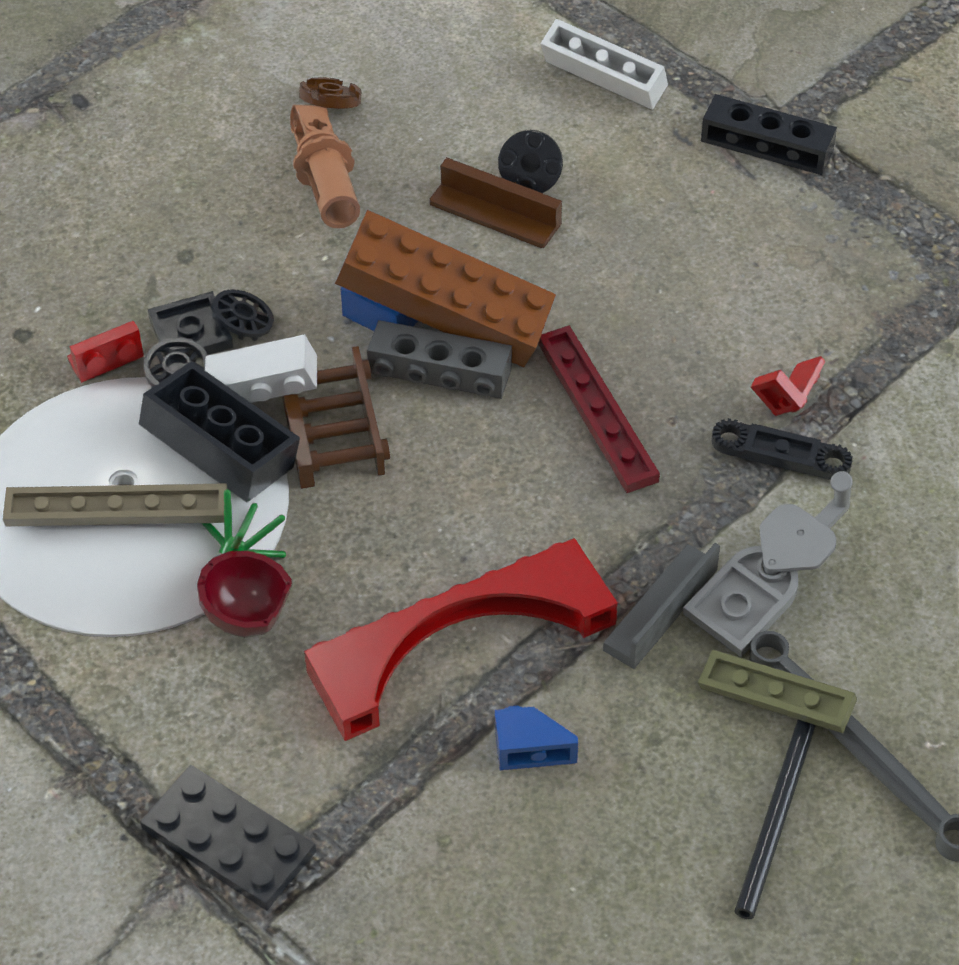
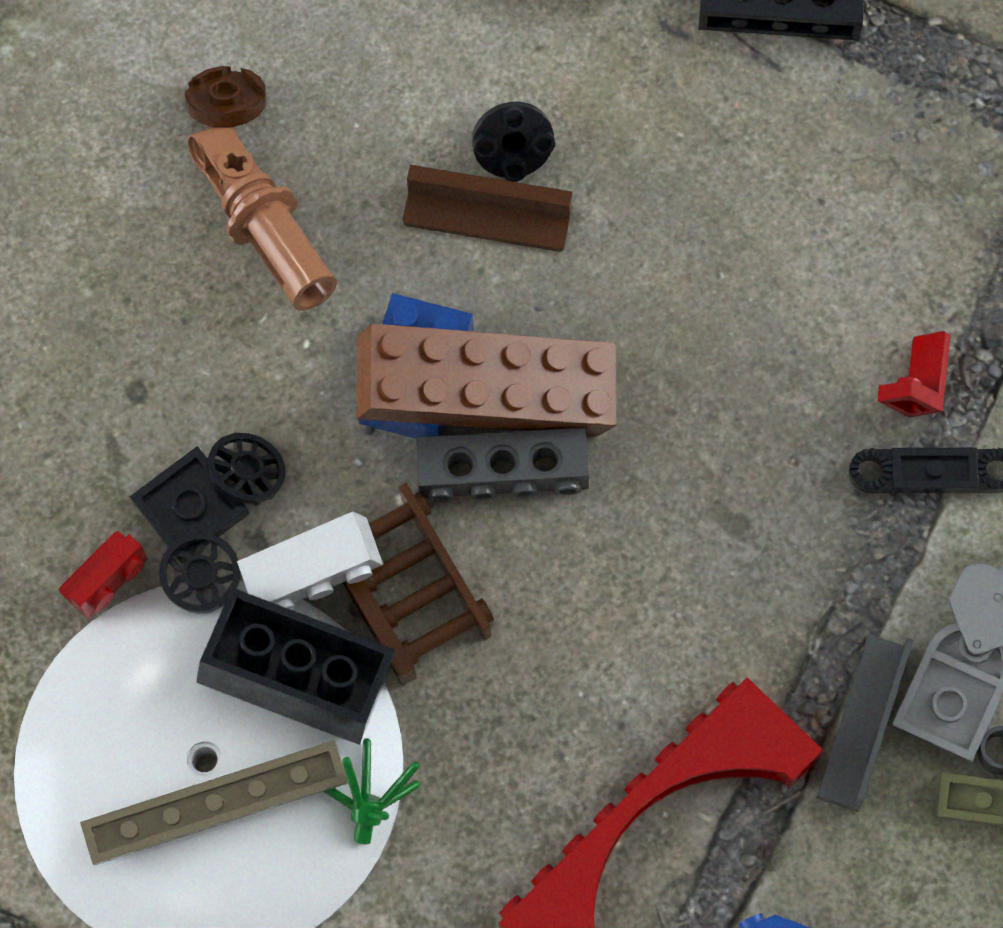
camera: 15 degrees left, 20 degrees up
(243, 592) = (402, 867): dark red cylinder -> none
(599, 409) = (709, 476): dark red plate -> none

